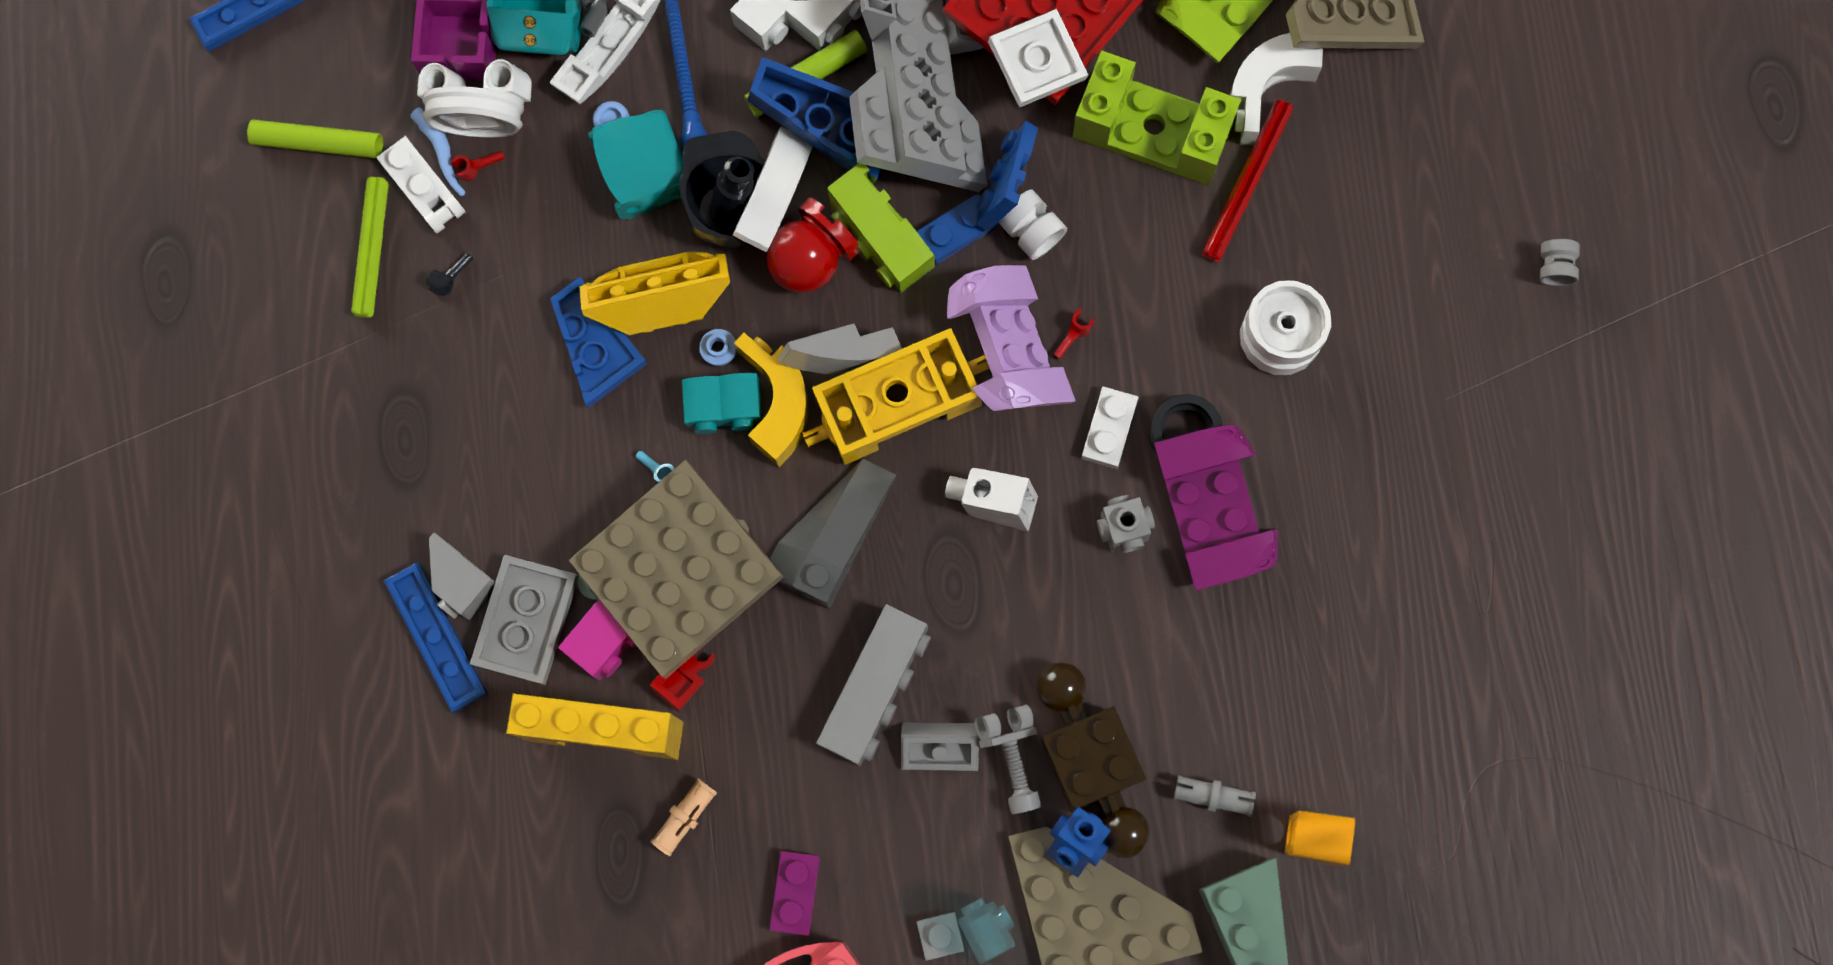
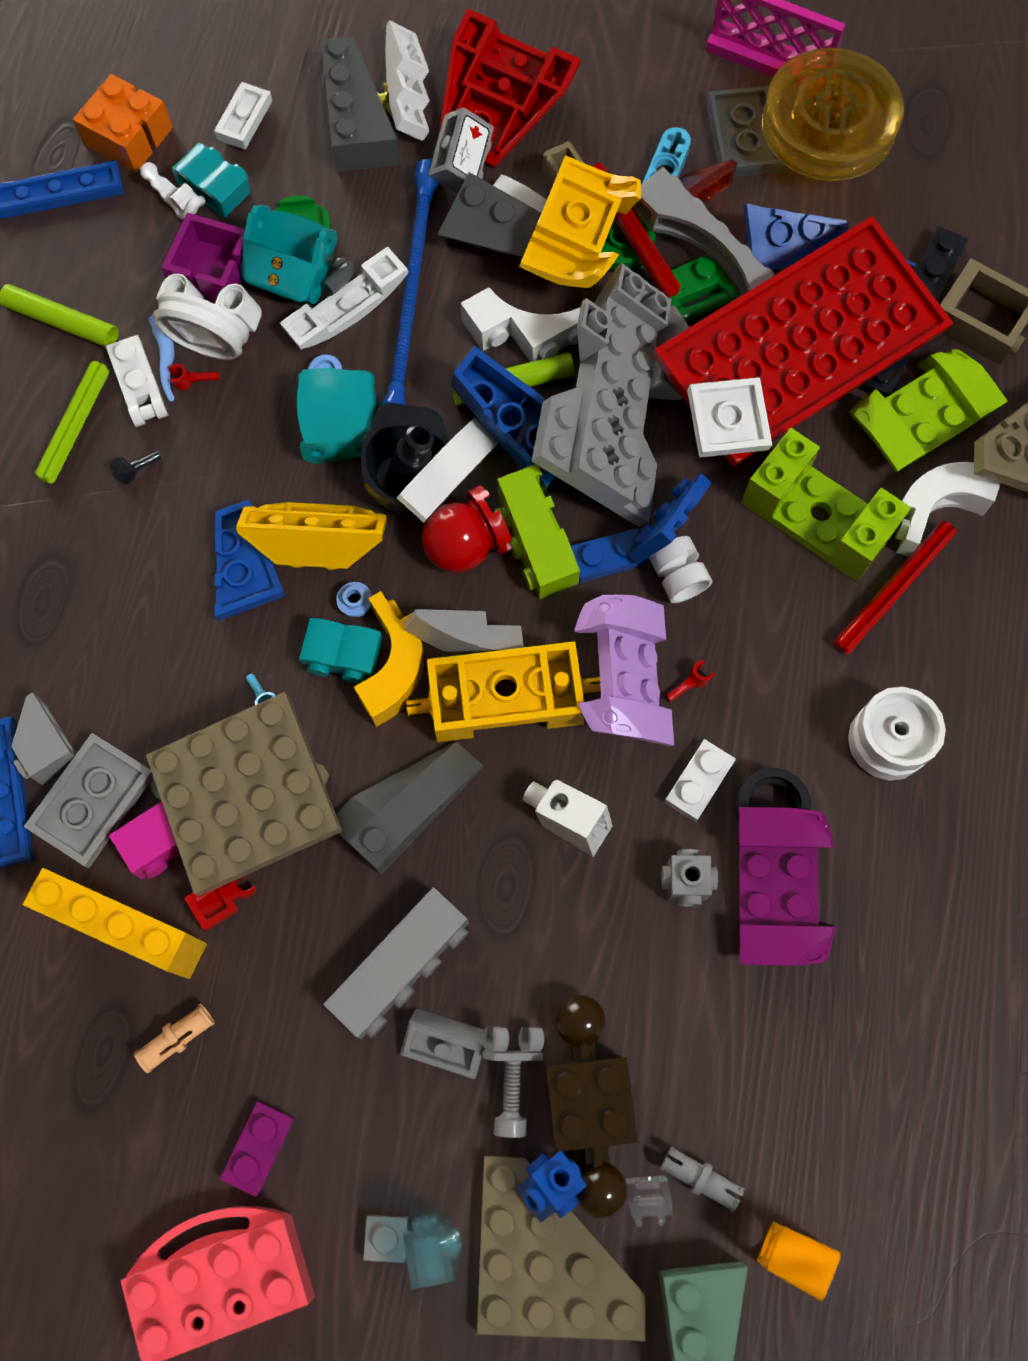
camera: 10 degrees right, 5 degrees down
(1171, 826) = (649, 1198): none -> clear tile

